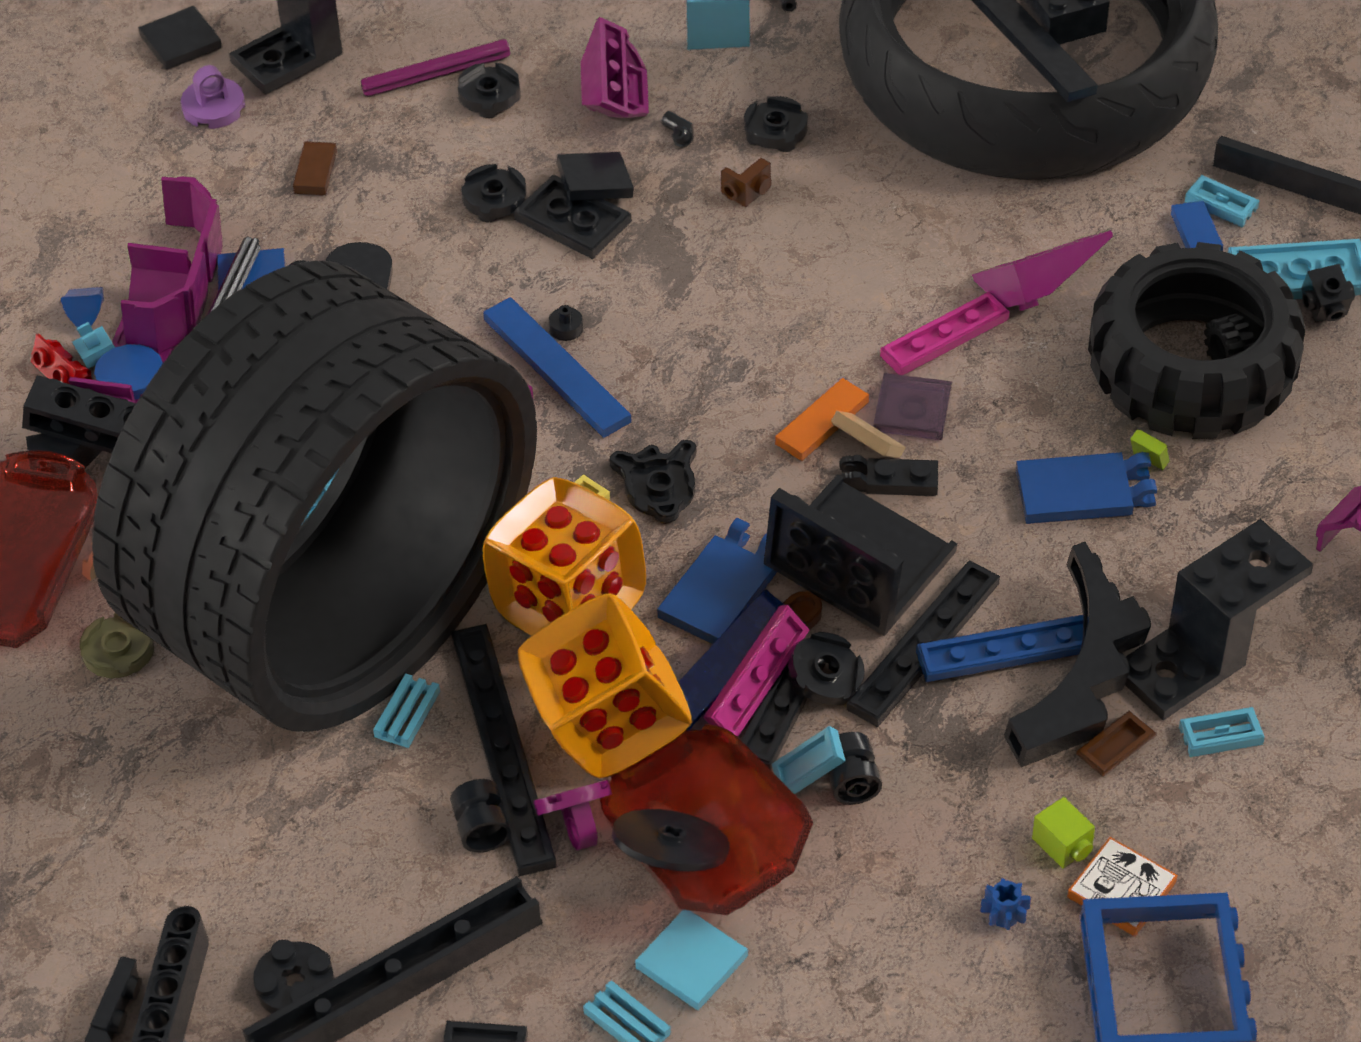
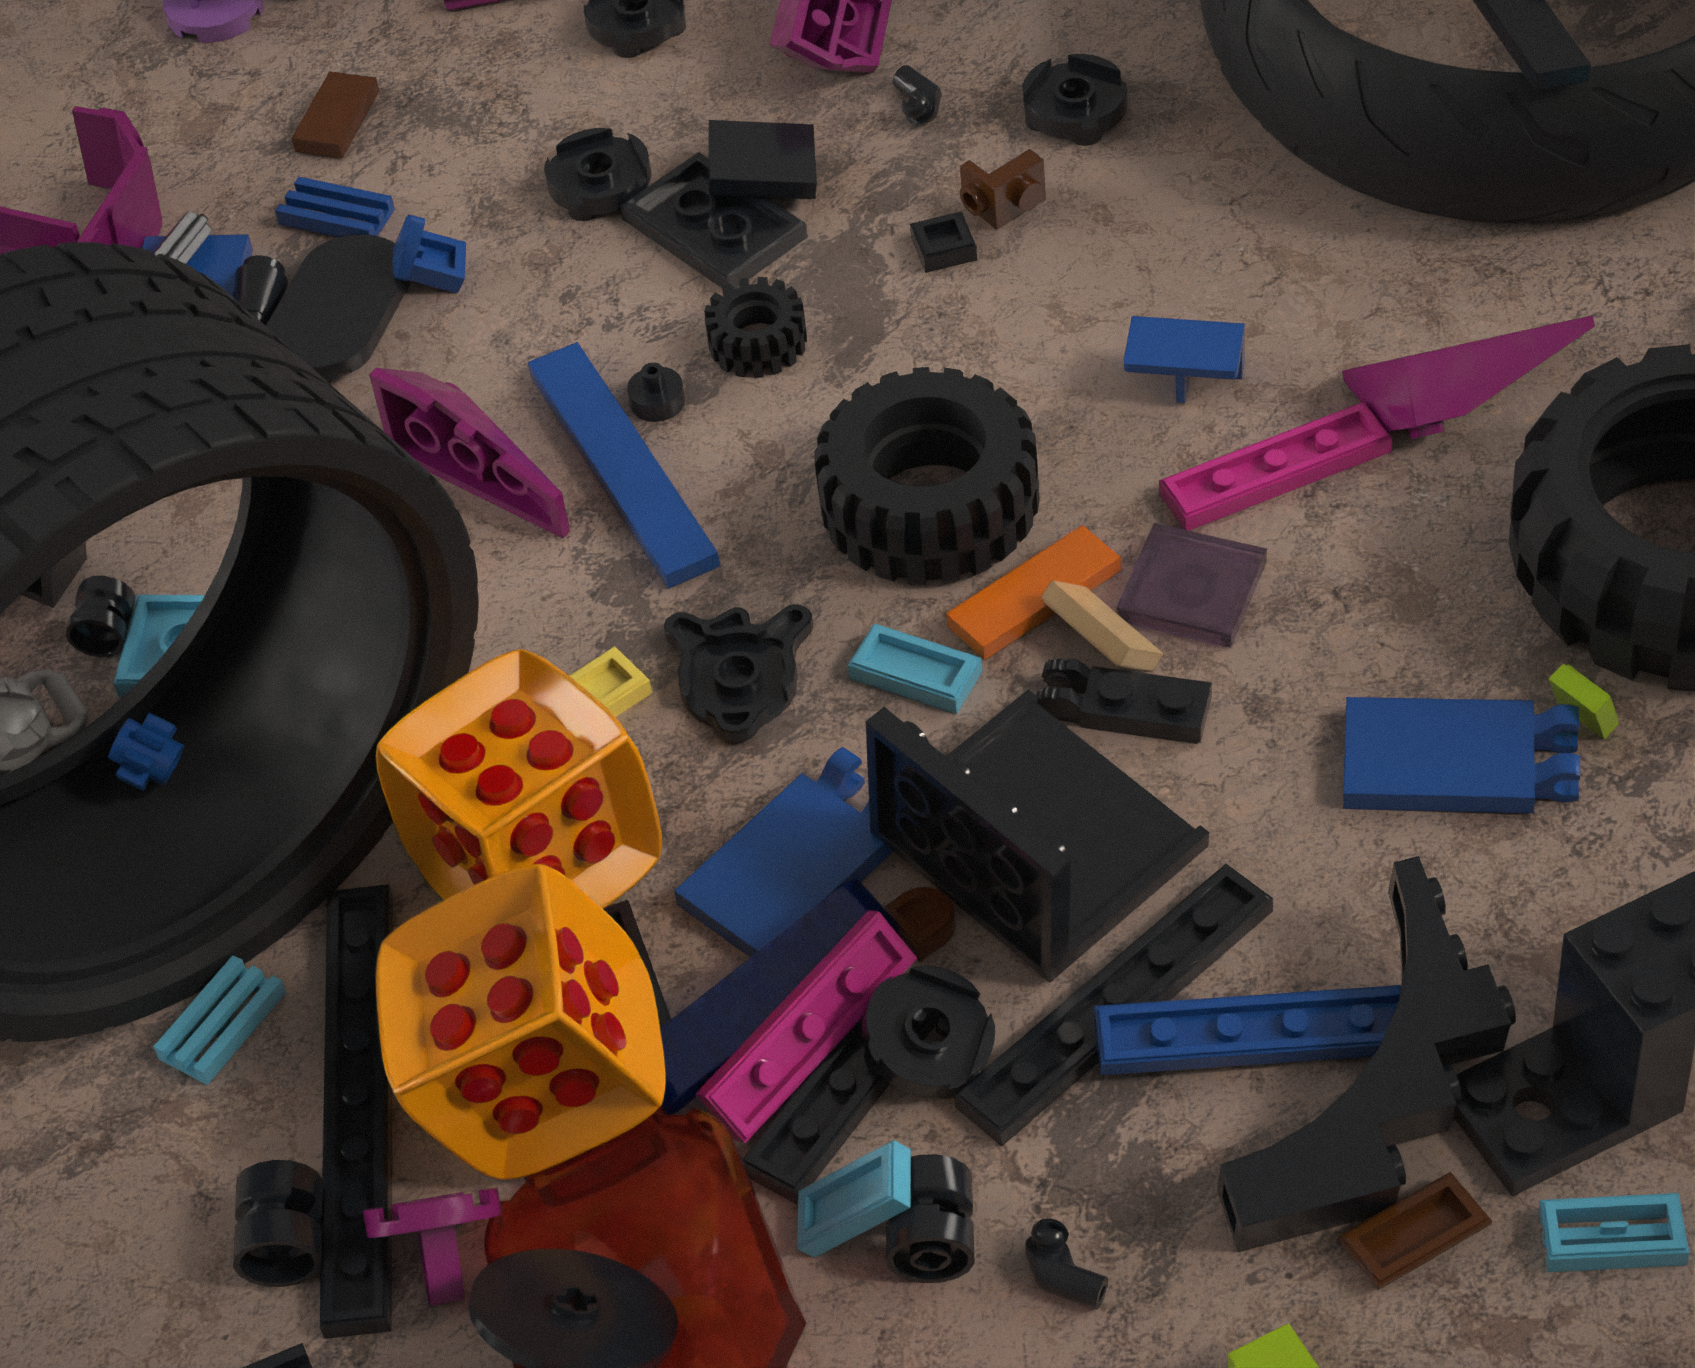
camera: 15 degrees right, 0 degrees up
(323, 562) = (146, 751): none -> blue gear
(334, 225) = (338, 203): none -> blue tile
(403, 252) = (428, 257): none -> blue tile
(617, 265) = (761, 347): none -> black tyre
(716, 217) = (943, 242): none -> black tile
(745, 388) = (933, 528): none -> black tyre
(763, 469) = (915, 668): none -> medium azure tile
(880, 270) = (1185, 349): none -> blue panel
(925, 787) = (1055, 1268): none -> black arm

